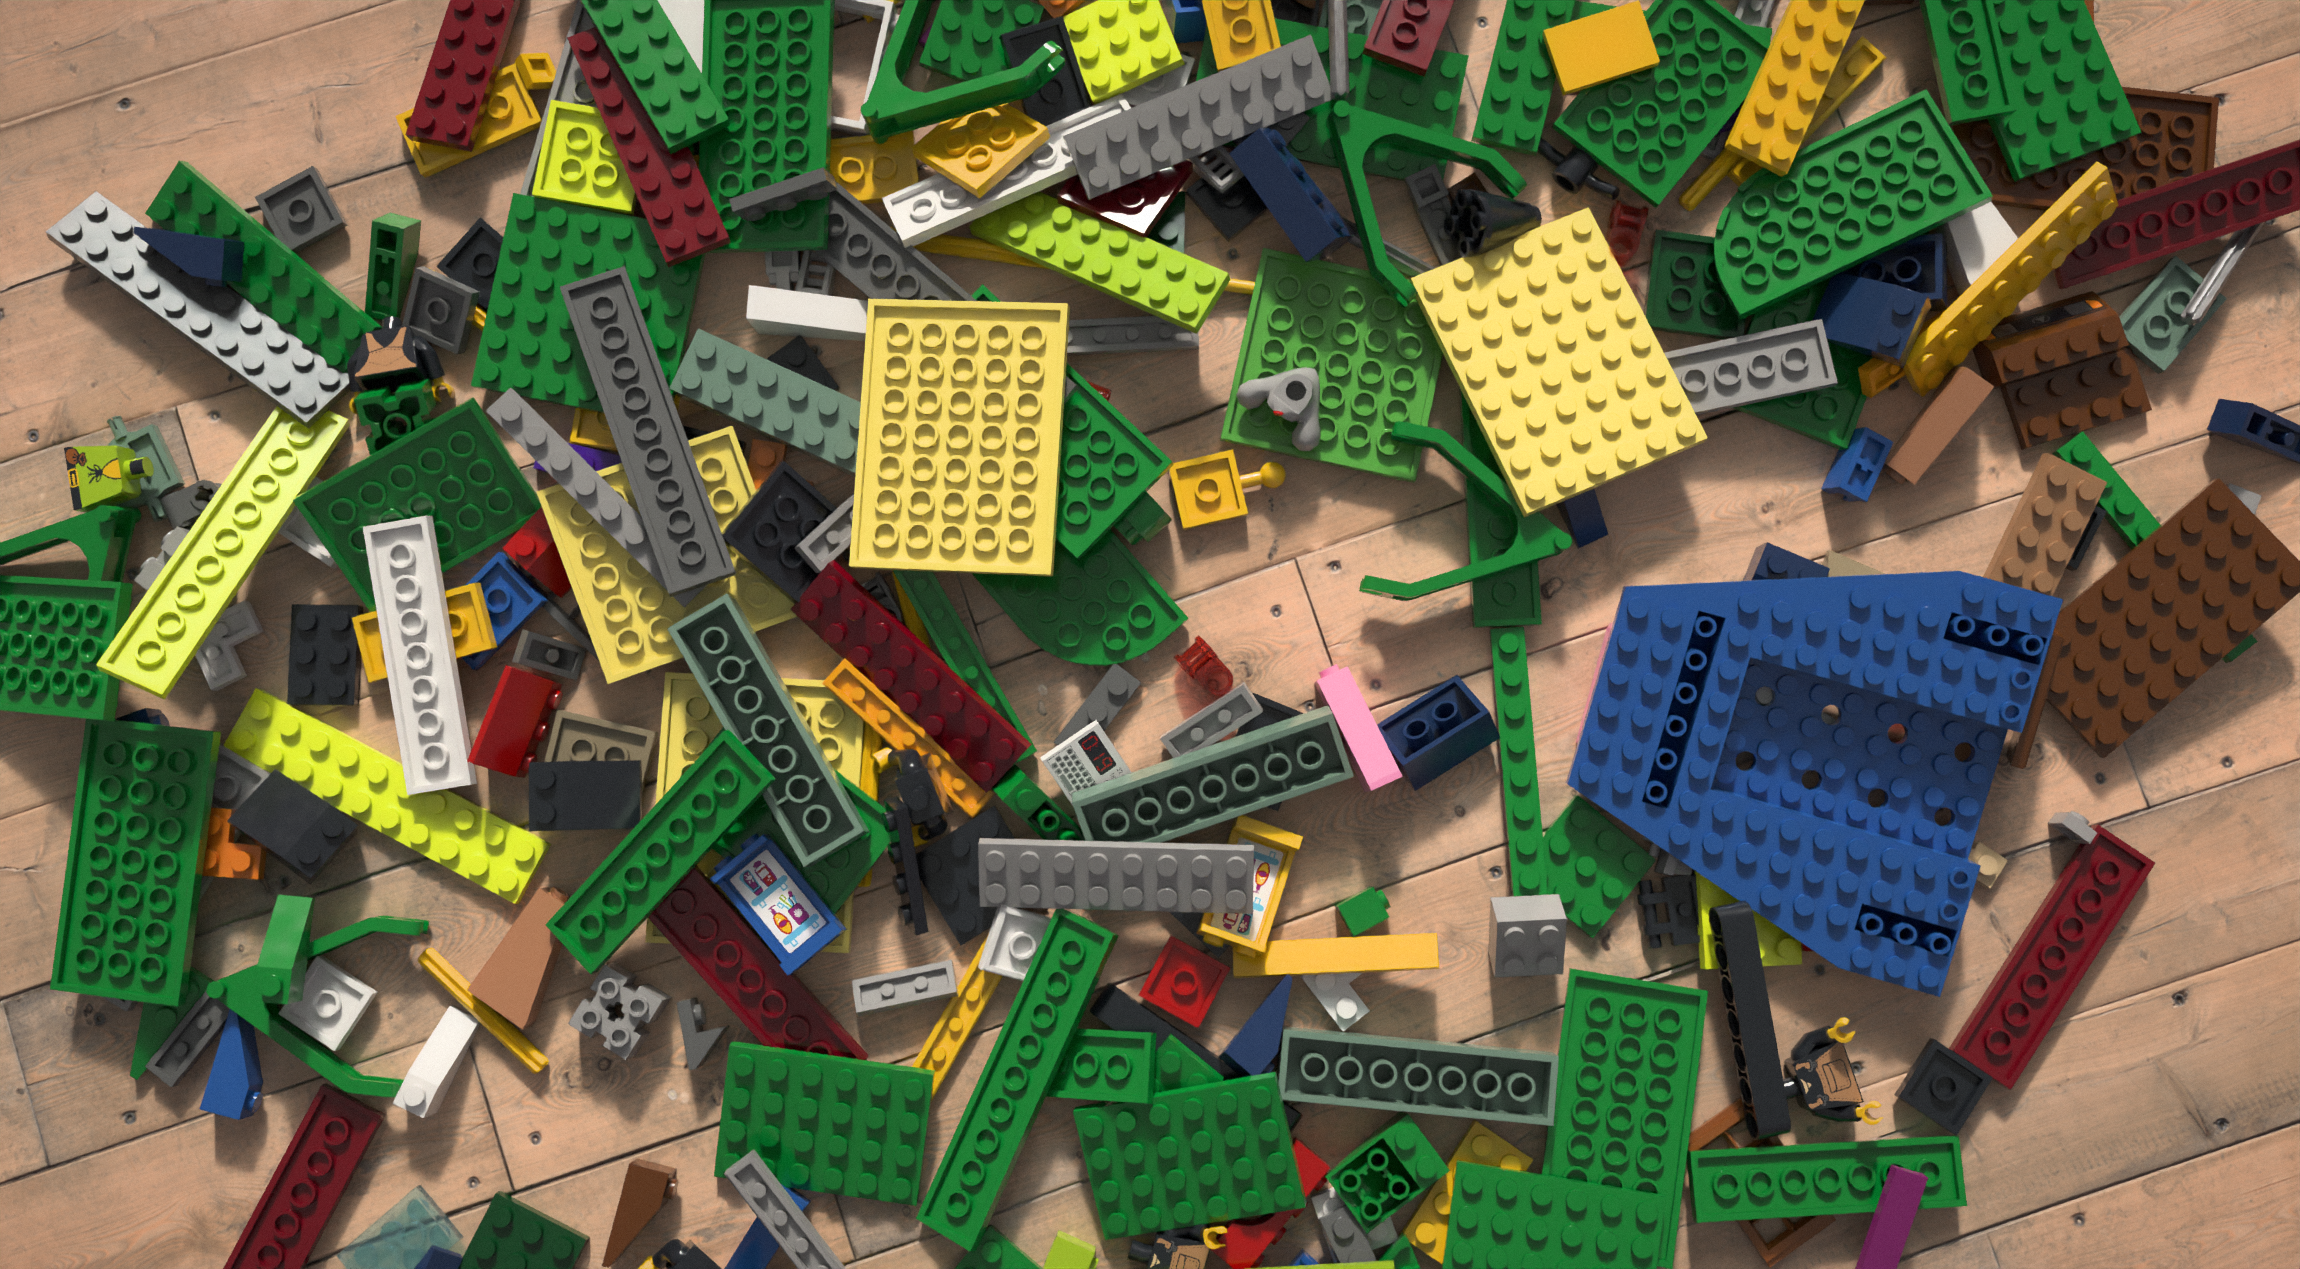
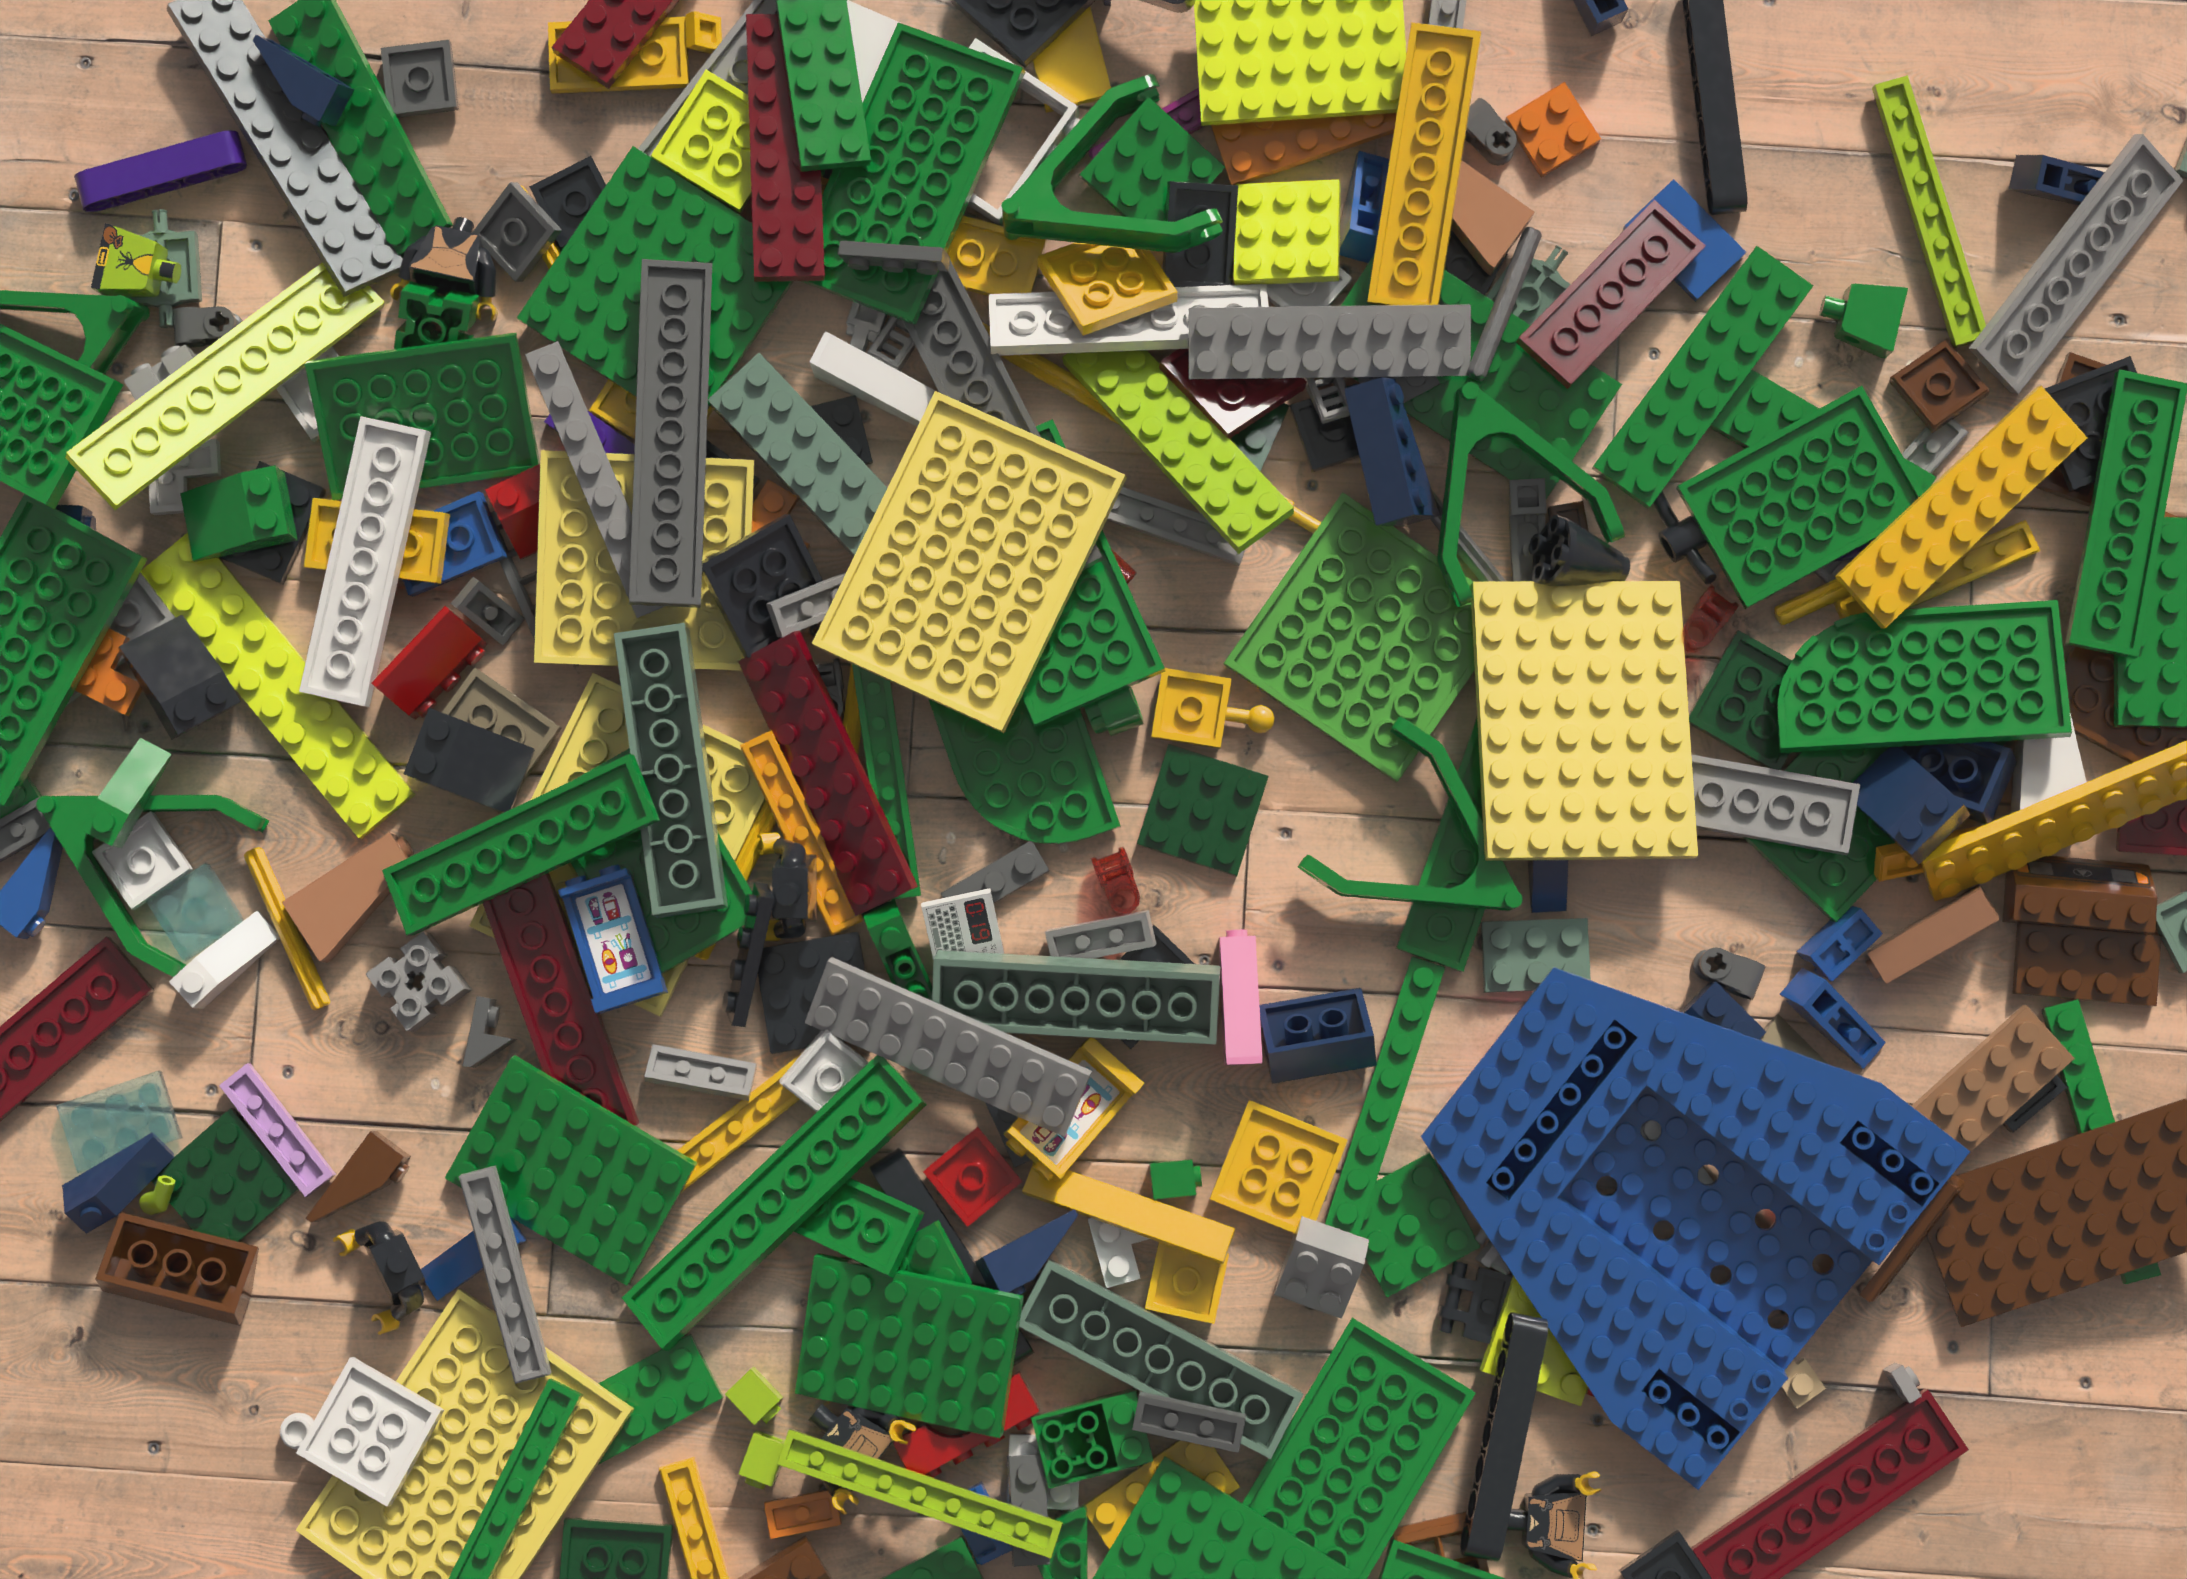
camera: 20 degrees right, 0 degrees up
(100, 383) = (160, 171): none -> dark purple beam
(290, 658) = (239, 514): none -> green slope
(391, 264) = (486, 167): green slope -> none
(394, 1029) = (195, 911): none -> clear light blue plate
(546, 1195) = (277, 1130): none -> lavender plate
(1254, 575) = (1202, 810): none -> dark green plate
(1291, 396) = (1308, 651): light grey head -> none
(1411, 1000) = (1185, 1284): none -> yellow plate
(1450, 863) = (1277, 1167): none -> yellow plate
(1469, 1123) = (1189, 1422): none -> dark grey plate
(1593, 583) = (1524, 952): none -> sand green plate
(1600, 48) = (1753, 430): yellow tile -> none
(1778, 528) = (1734, 972): none -> dark grey piece
(1877, 532) = (1832, 1016): none -> blue slope

